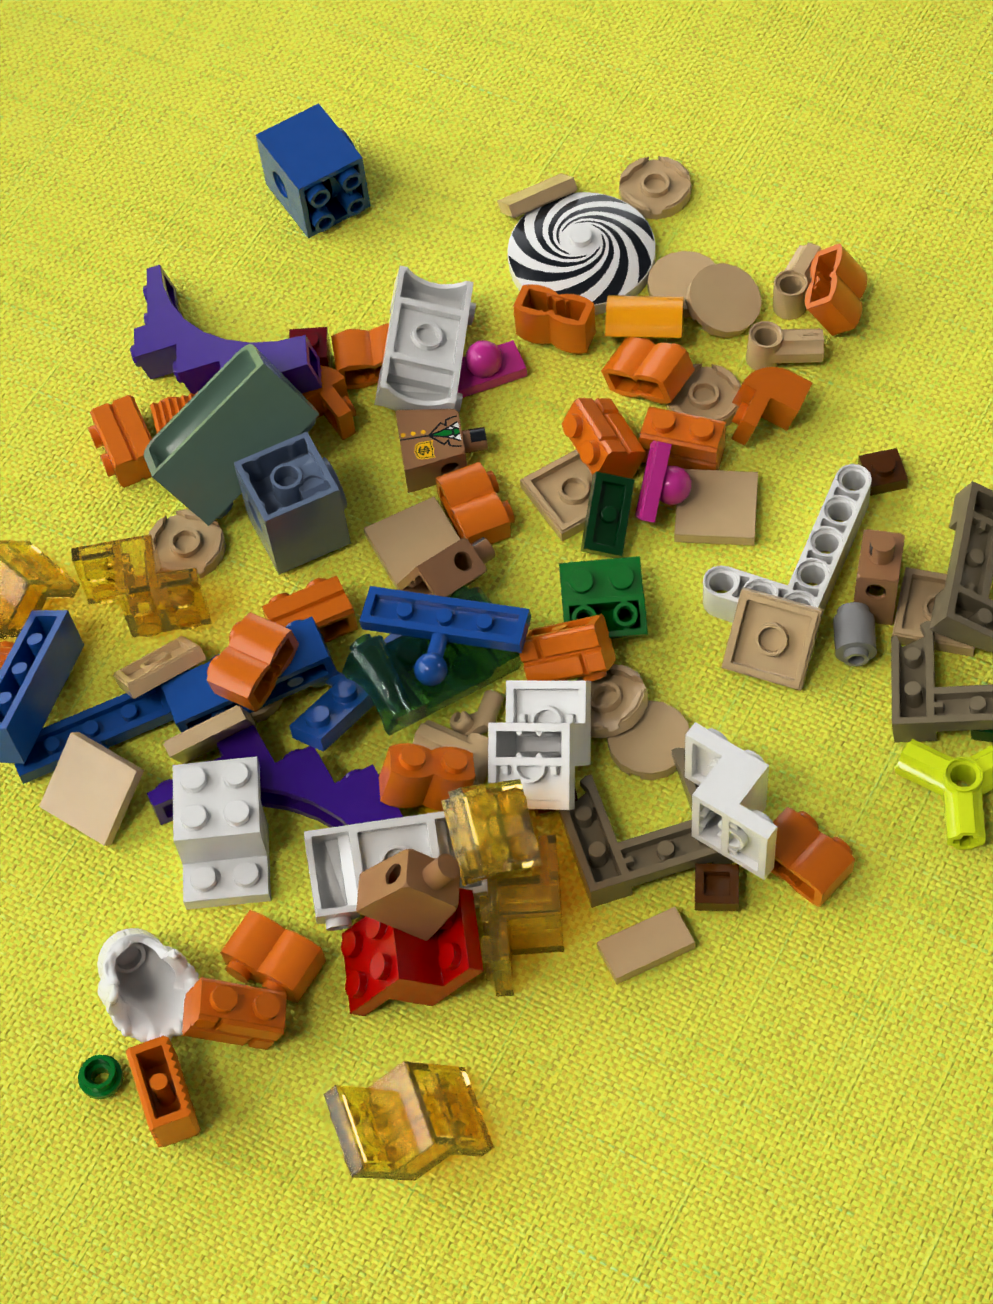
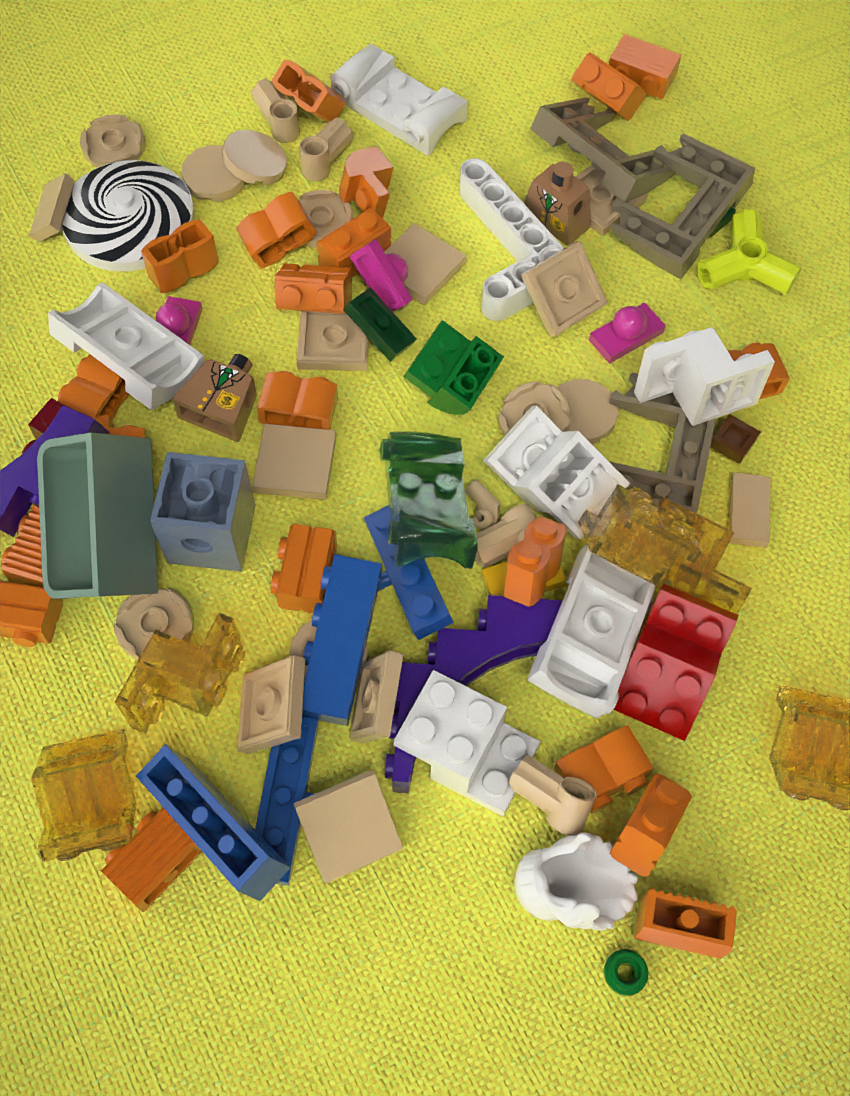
camera: 65 degrees left, 5 degrees up
(211, 922) = (563, 799): none -> tan piece
(252, 661) = (349, 619): orange brick -> none
(411, 892) = (659, 616): medium nougat torso -> none
(442, 622) = (413, 466): blue plate -> none
(450, 568) = (353, 452): medium nougat torso -> none
(569, 650) = (486, 410): orange brick -> none
(644, 316) = (230, 204): light orange brick -> none
(778, 726) = (627, 332): none -> dark pink tile
(854, 634) = (596, 244): light grey brick -> none
(886, 471) = (465, 152): reddish brown plate -> none
(905, 364) = (397, 100): none -> white piece

